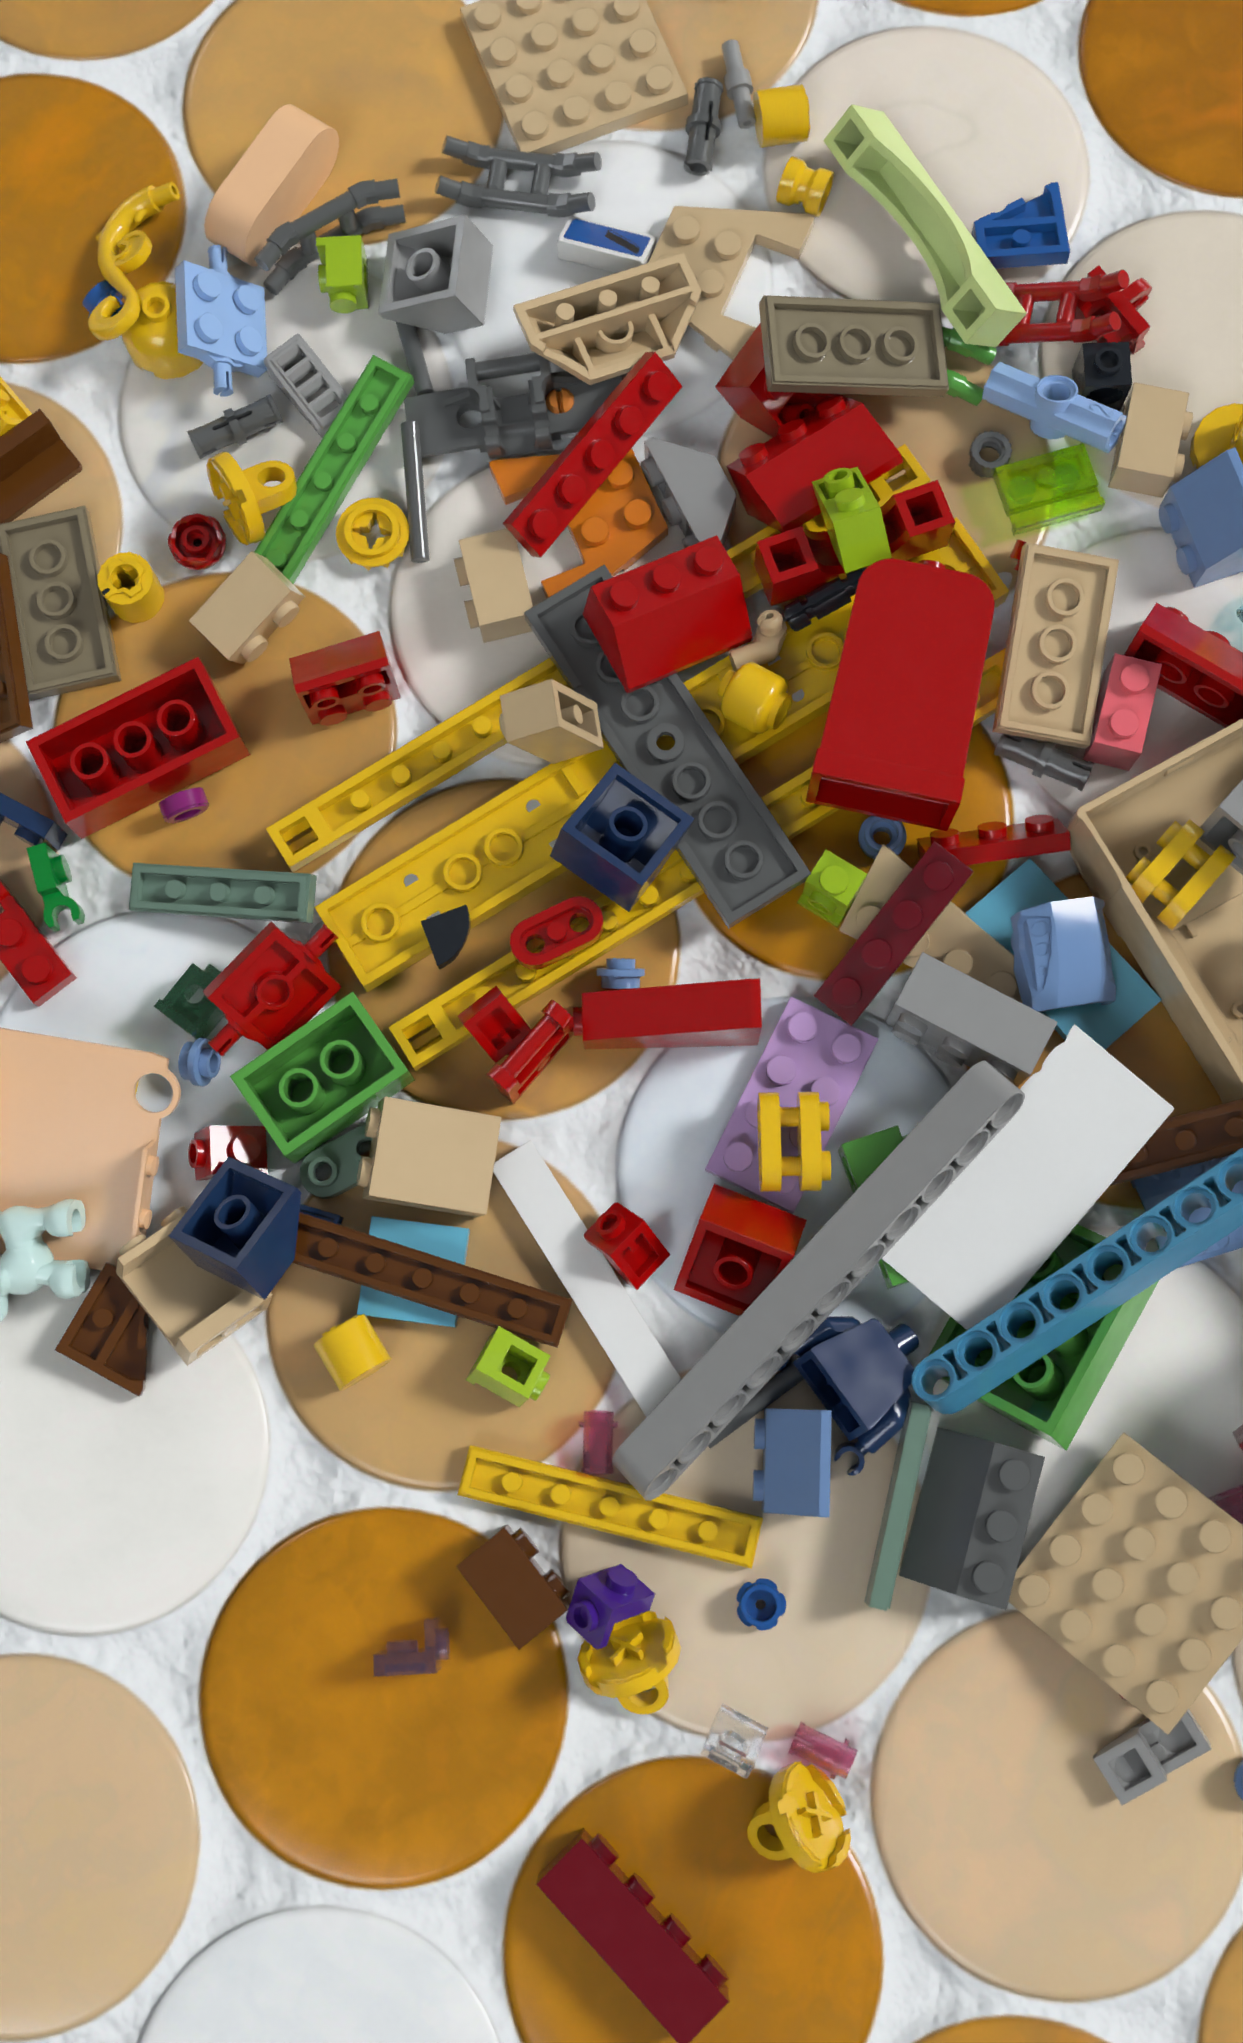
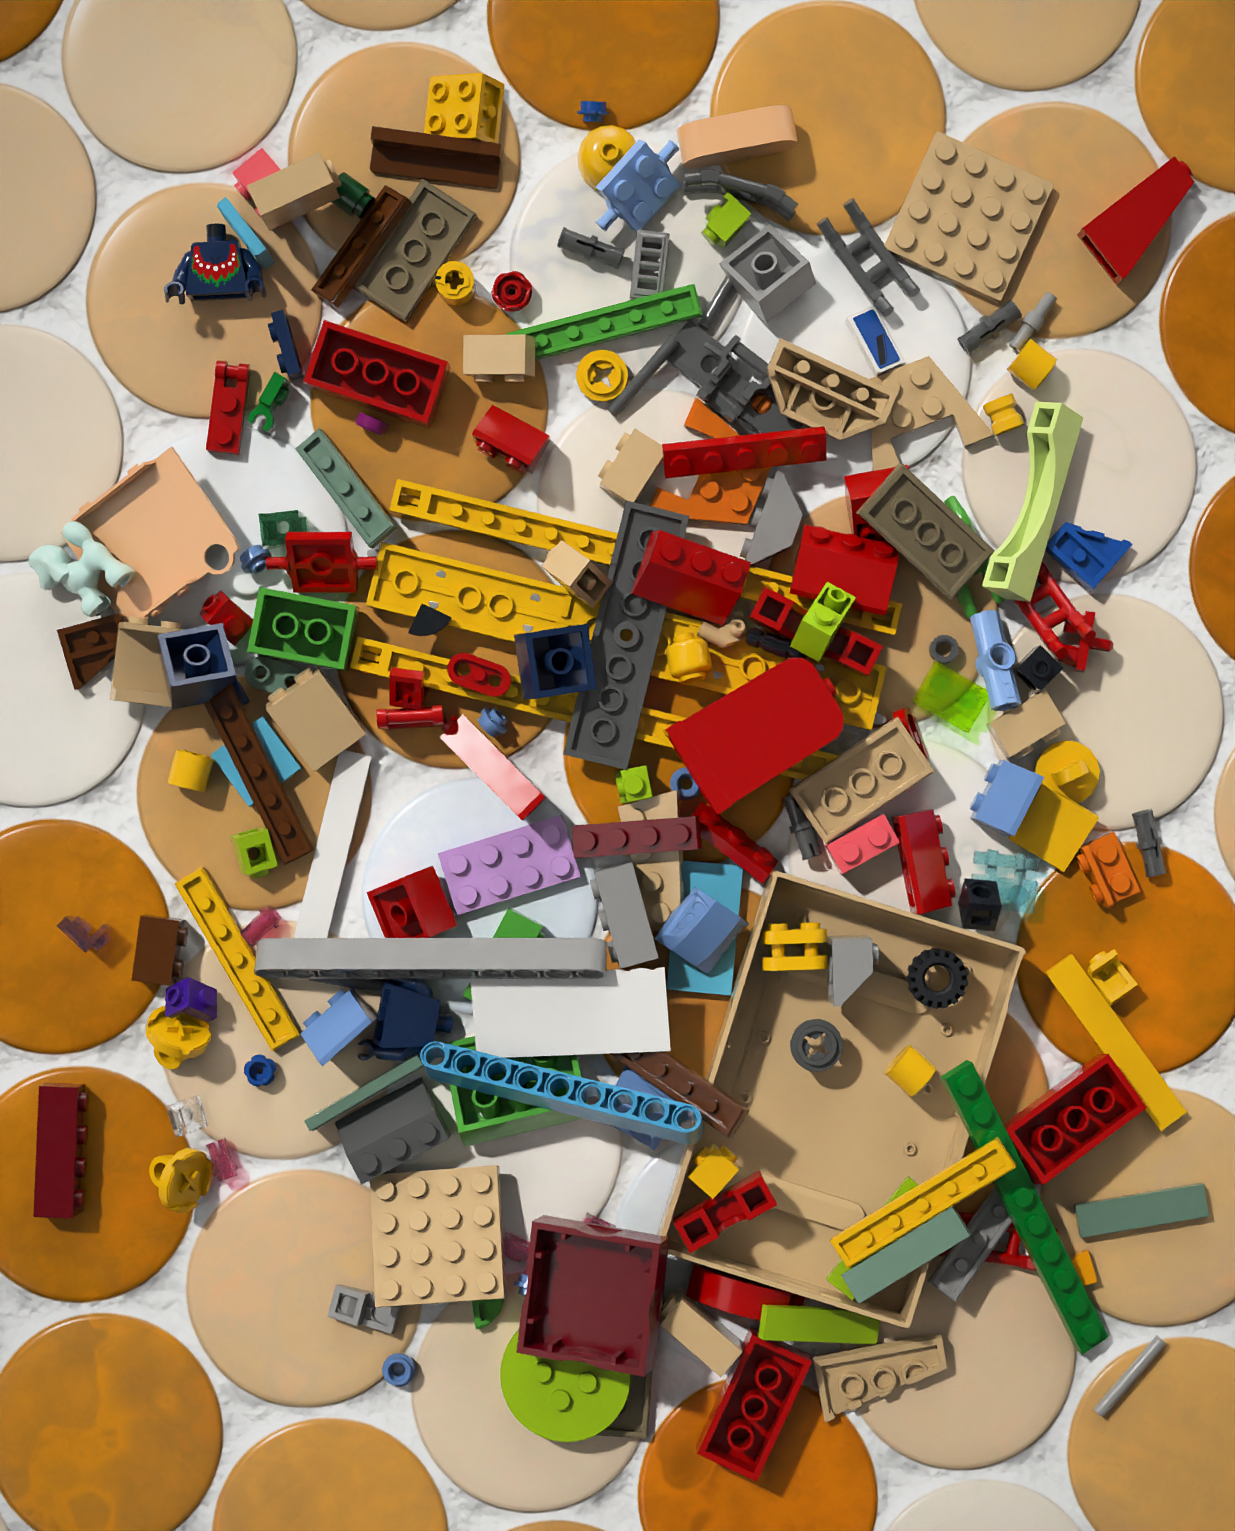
camera: 40 degrees right, 10 degrees up
(135, 250) = (630, 105): yellow plant -> none
(246, 493) = (555, 294): yellow tile -> none
(627, 1244) = (364, 850): red bracket -> none
(810, 1118) = (484, 903): yellow brick -> none

